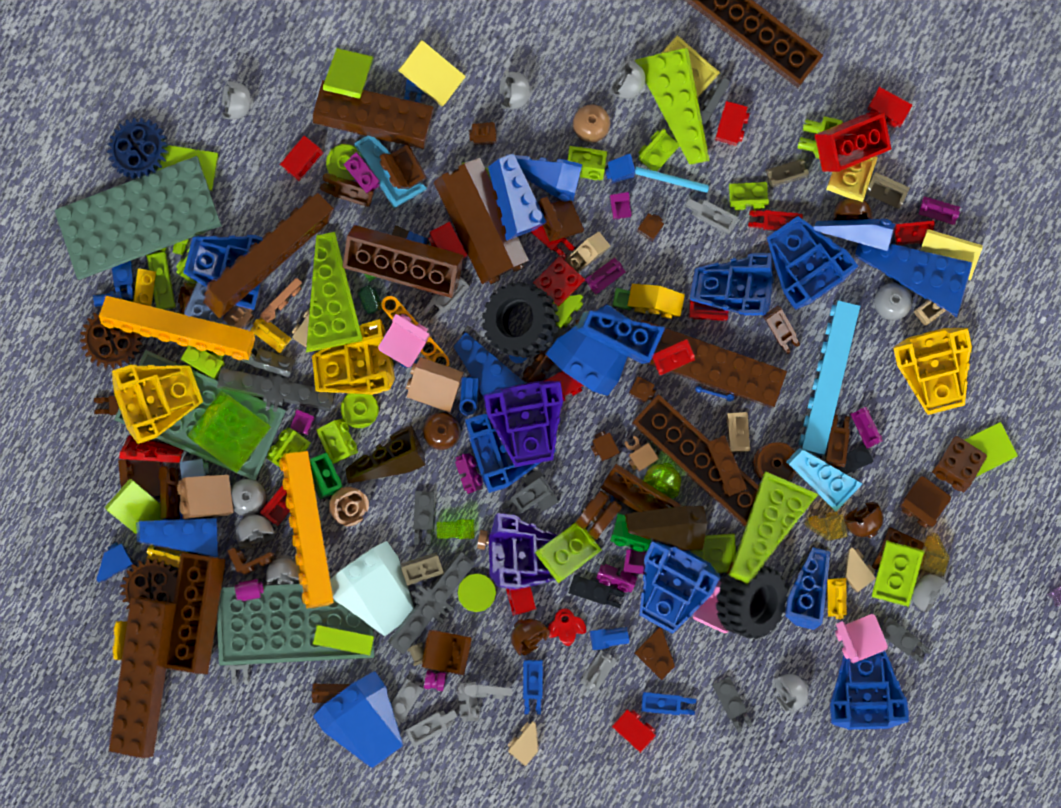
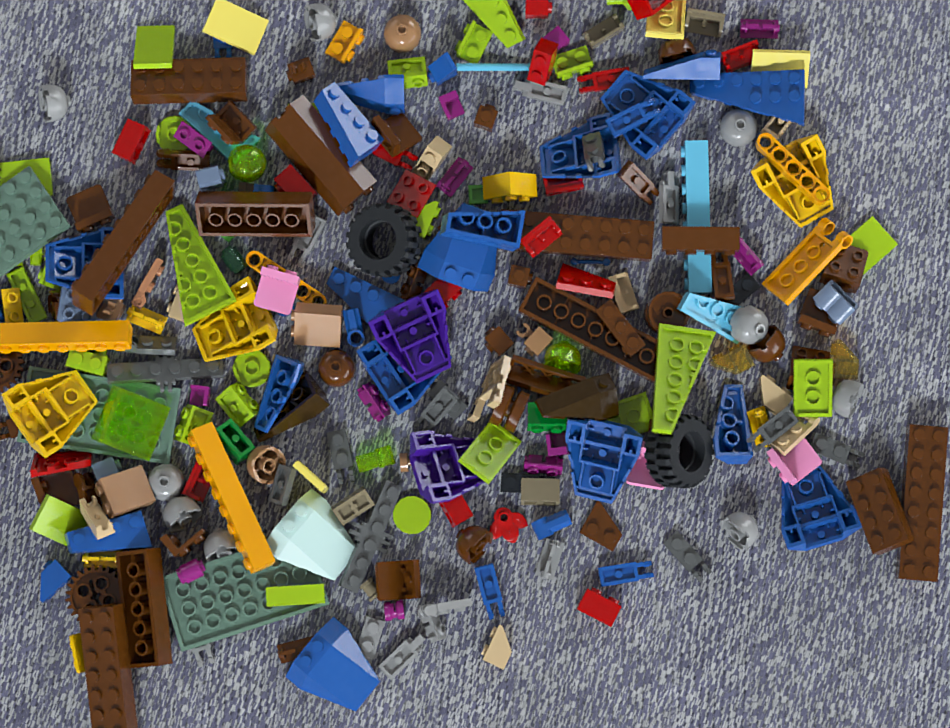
camera: 10 degrees left, 0 degrees up
(171, 515) = (96, 518): none -> tan hinge
(244, 213) = (90, 209): none -> reddish brown bracket
(359, 530) = (282, 484): none -> dark grey panel
(369, 214) = (211, 178): none -> sand blue brick
(384, 431) = (280, 385): none -> blue wedge
(389, 530) = (311, 476): none -> light yellow tile
(407, 209) = (247, 163): none -> clear neon green cylinder
(533, 117) = (344, 42): none -> light orange bracket
(587, 490) = (492, 387): none -> tan wing
(606, 603) = (540, 491): none -> dark tan panel
(702, 411) = (584, 282): none -> red wing
(720, 187) = (542, 61): none -> red brick
(738, 169) = (558, 36): none -> magenta panel
(746, 286) = (593, 150): none -> dark grey hinge
(791, 265) = (631, 118): none -> blue hinge
(806, 353) = (668, 199): none -> light grey hinge
(826, 400) = (700, 239): none -> reddish brown brick
(850, 602) = (774, 428): none -> dark grey hinge
(852, 496) = (749, 325): none -> light grey cylinder
(867, 613) = (794, 435): none -> tan plate
(924, 449) = (806, 261): none -> light orange hinge
(930, 710) = (880, 511): none -> reddish brown brick
(934, 346) = (796, 178): none -> light orange beam
(941, 496) = (835, 302): none -> sand blue brick
(973, 713) = (923, 501): none -> reddish brown brick

